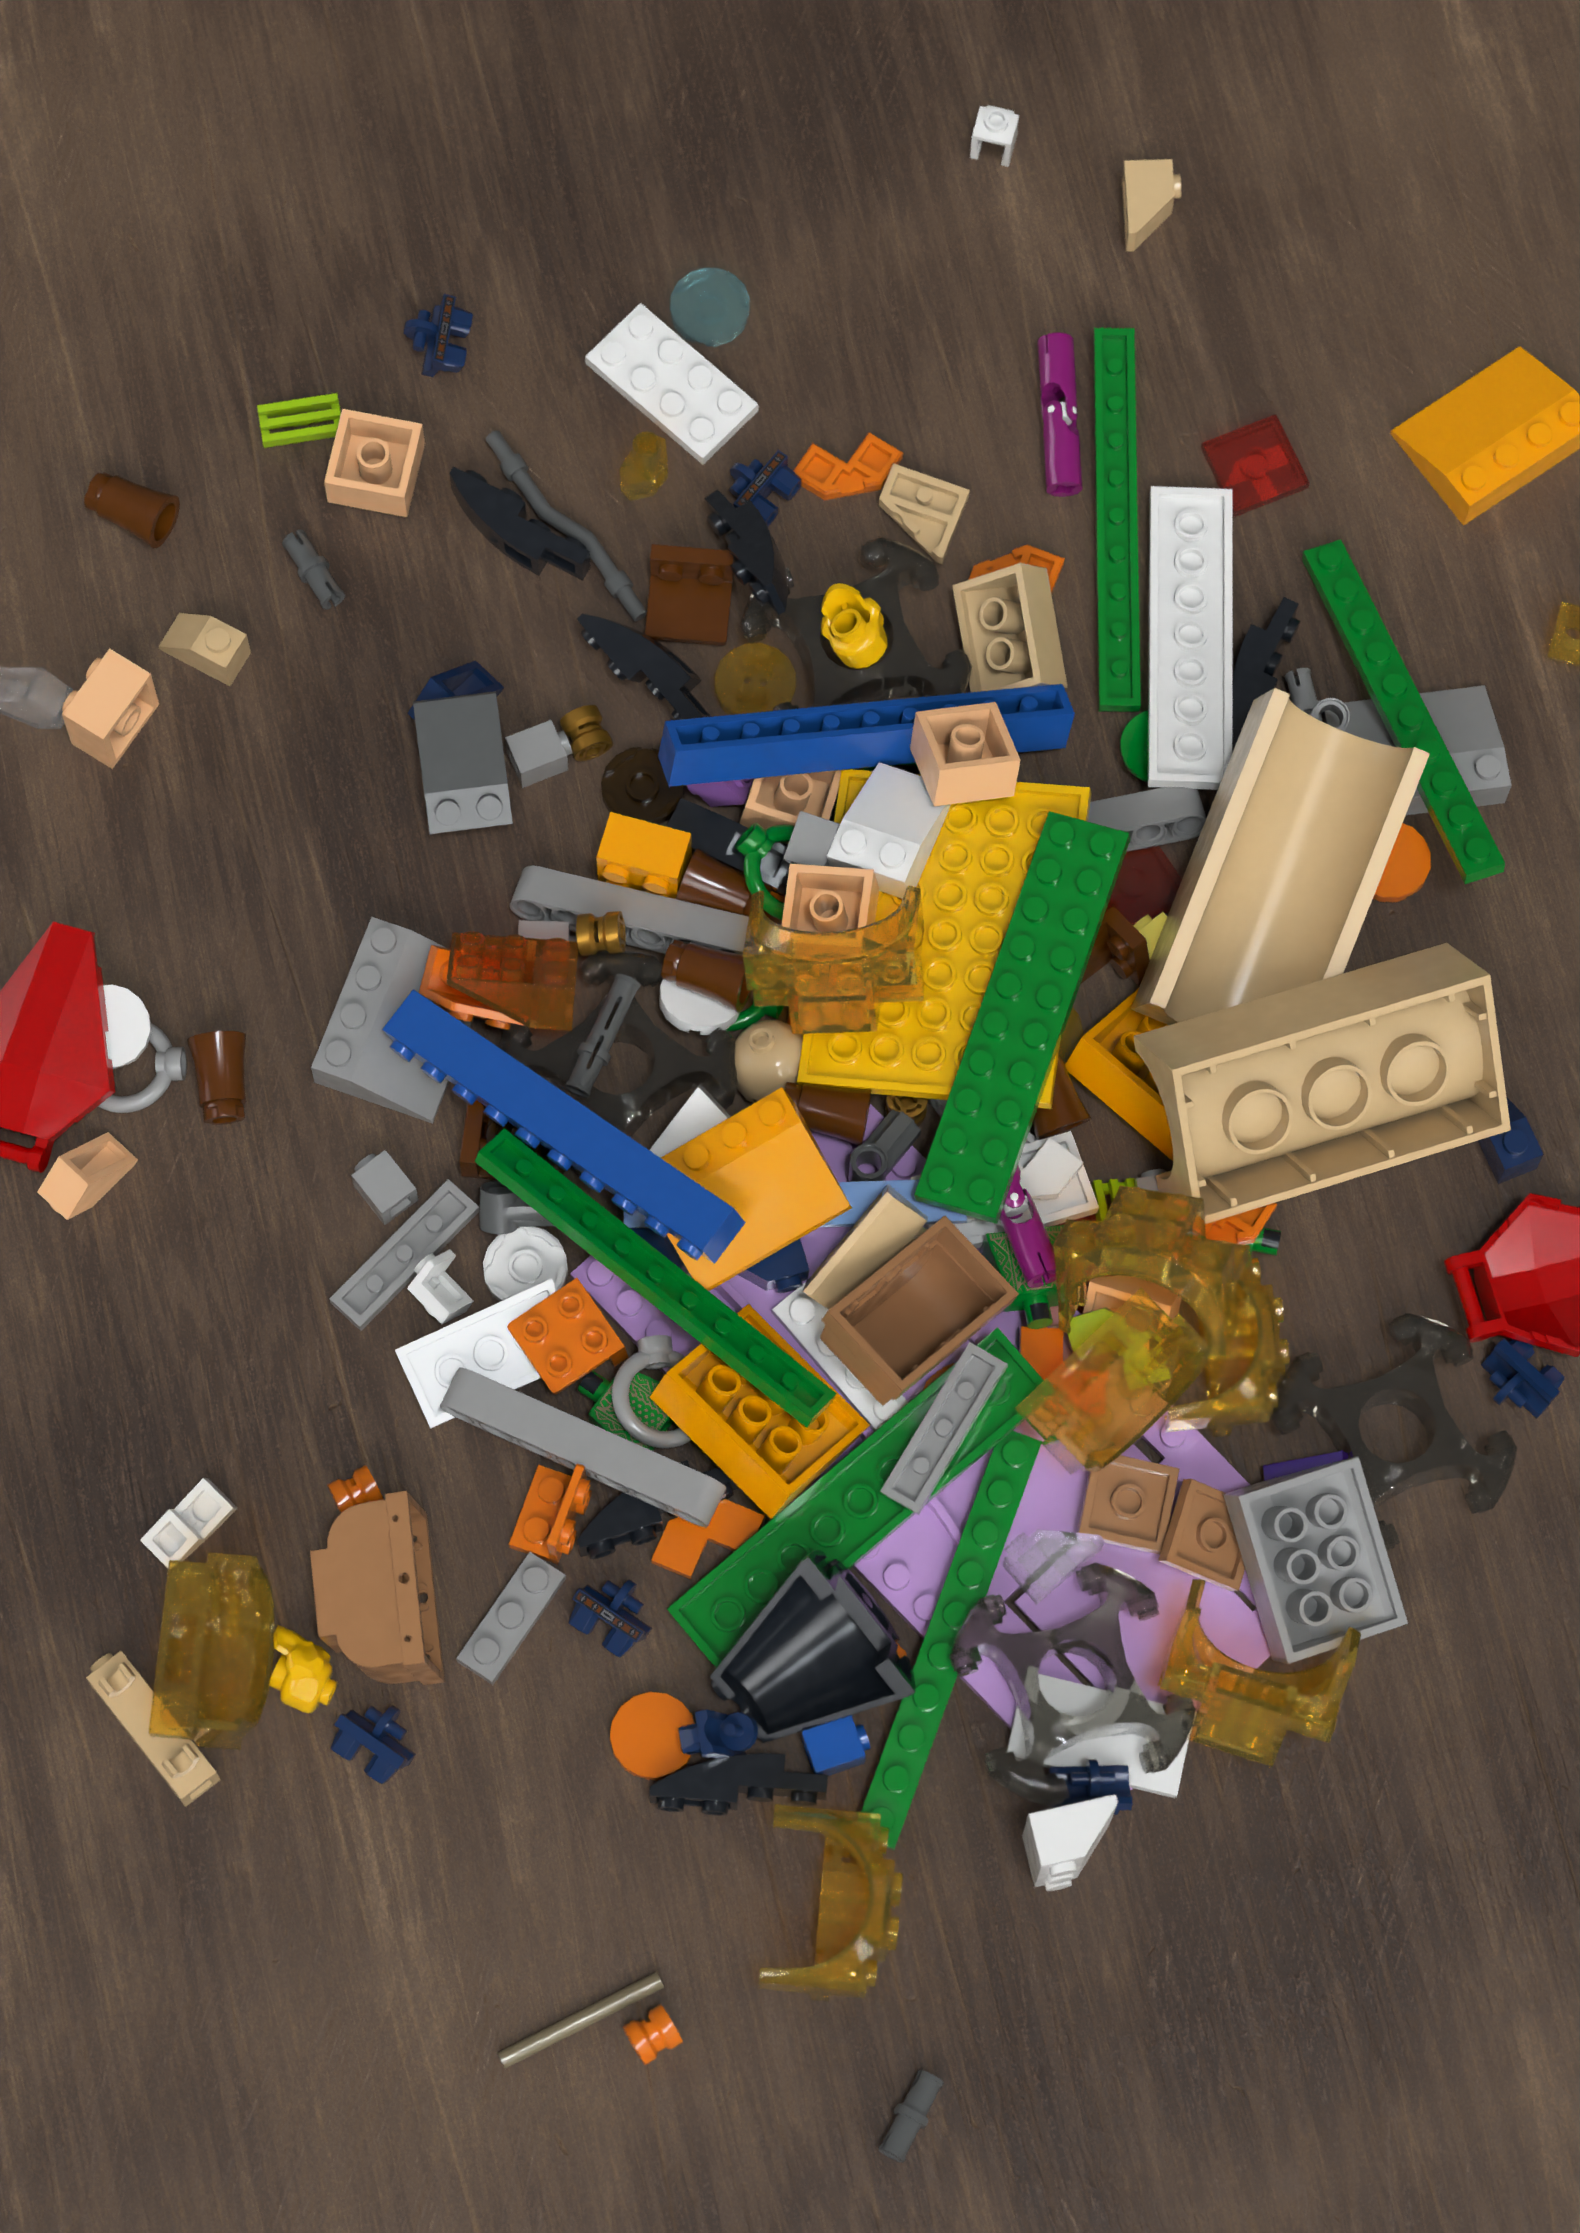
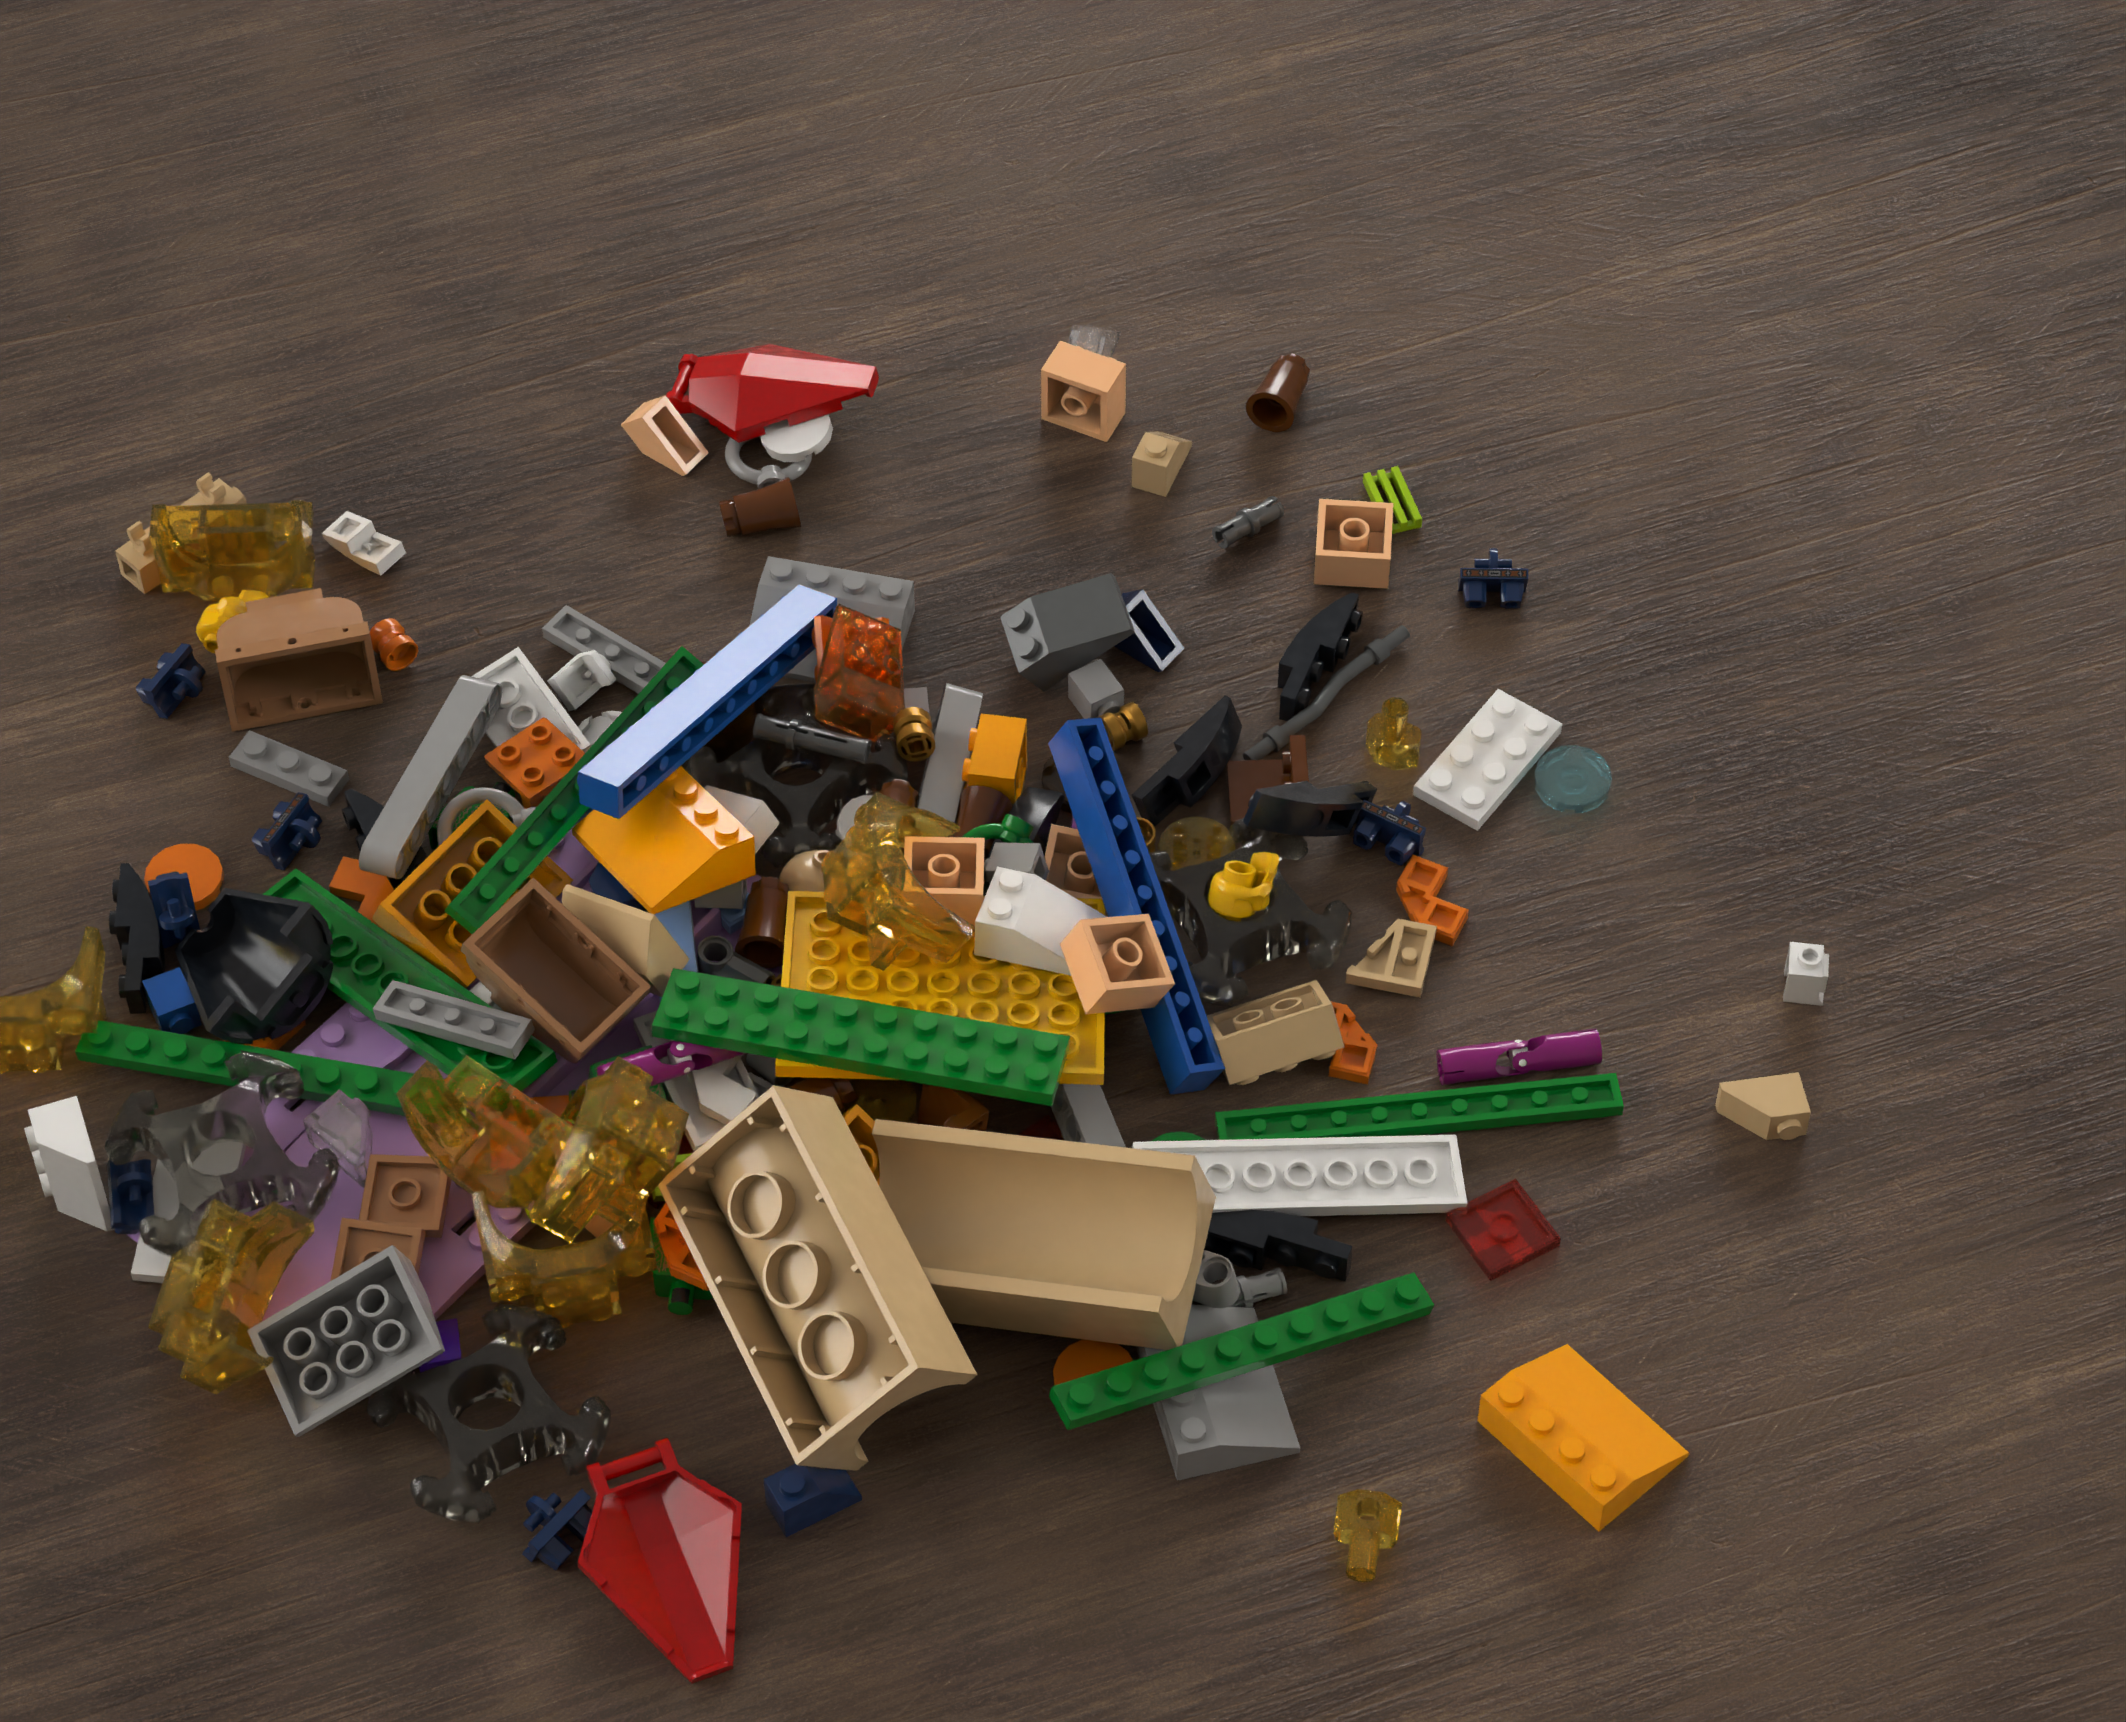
camera: 85 degrees right, 20 degrees down
(384, 1186) = (671, 629): light grey brick -> none
(549, 1513) = (368, 773): orange bracket -> none

